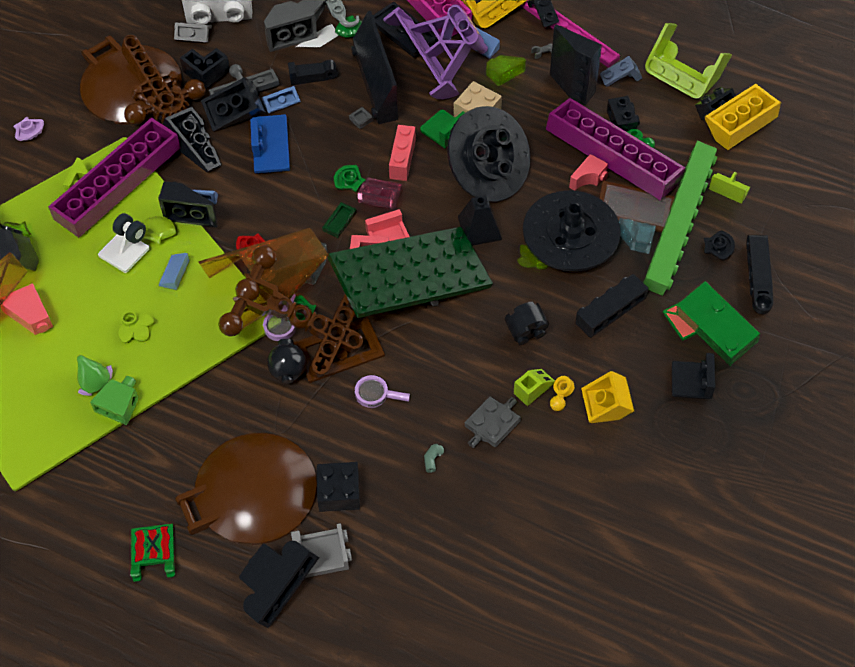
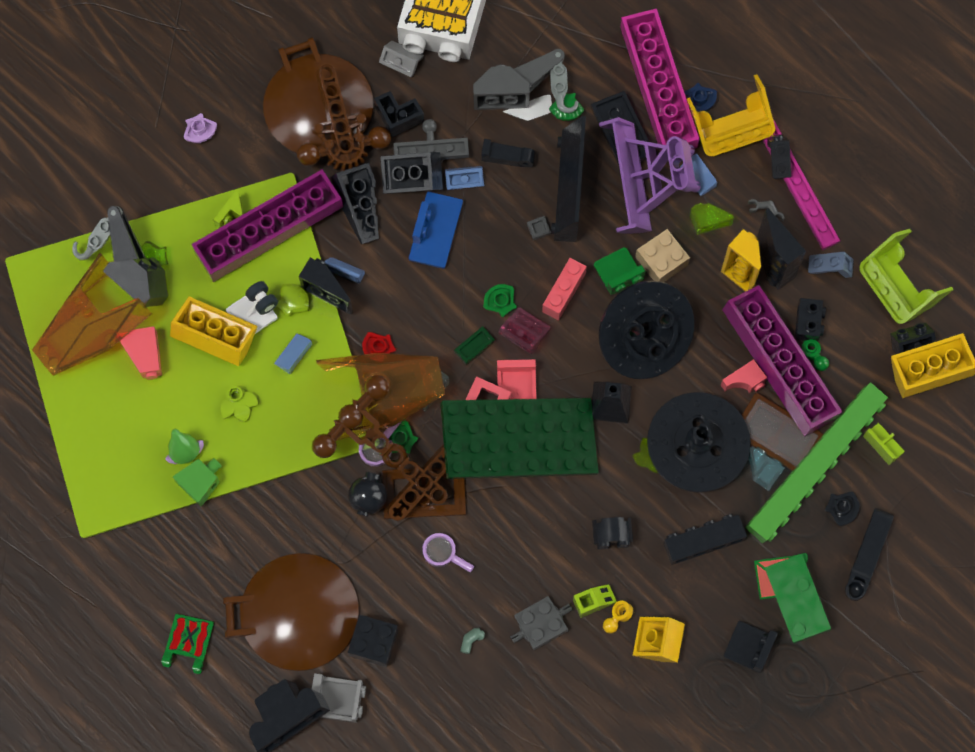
camera: 20 degrees right, 15 degrees up
(91, 273) = (213, 331): none -> yellow slope
(549, 79) = (742, 260): none -> yellow slope

